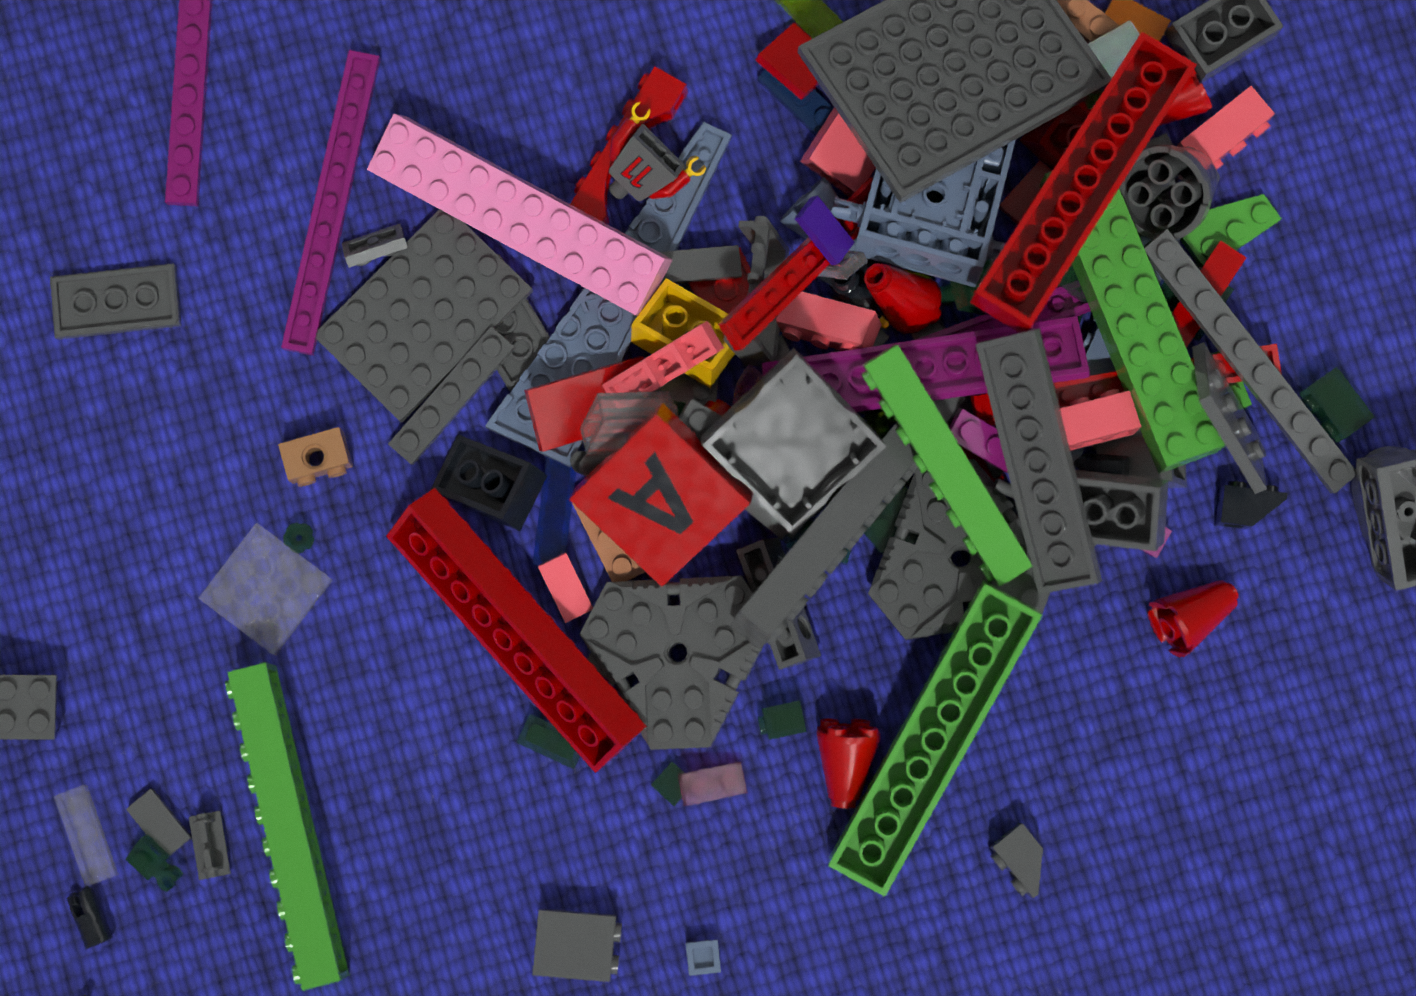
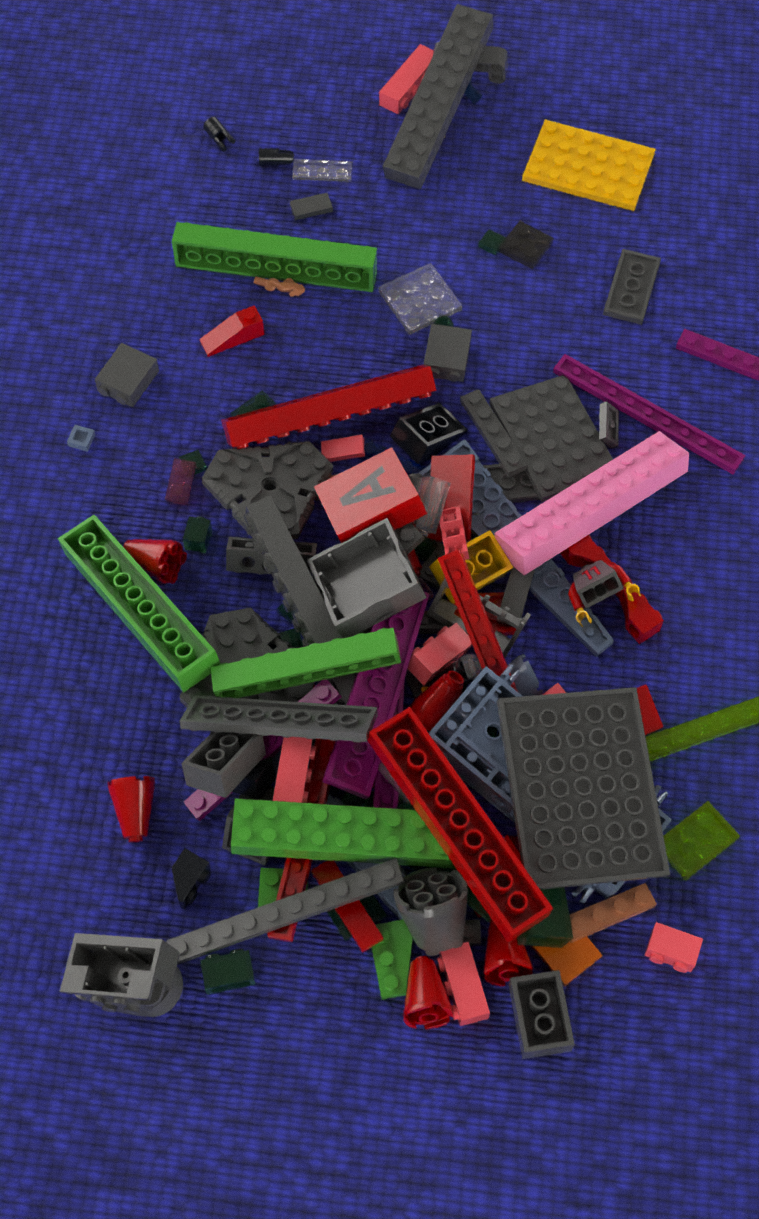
camera: 115 degrees right, 20 degrees down
(101, 478) = (526, 244): none -> clear smoke plate
(117, 529) = (491, 241): none -> clear green tile
(151, 862) = (291, 193): clear green plate -> none
(209, 845) = (285, 224): dark grey hinge -> none
(297, 452) = (488, 349): medium nougat brick -> none
(320, 791) = (287, 285): none -> nougat animal
(347, 510) = (448, 352): none -> dark grey brick
(438, 830) = (235, 330): none -> red slope
(824, 230) = (500, 654): dark purple tile -> none
(1021, 857) = (36, 634): dark grey slope -> none
(1229, 418) = (250, 868): dark grey plate -> none
(1260, 167) = (425, 996): none -> red cone

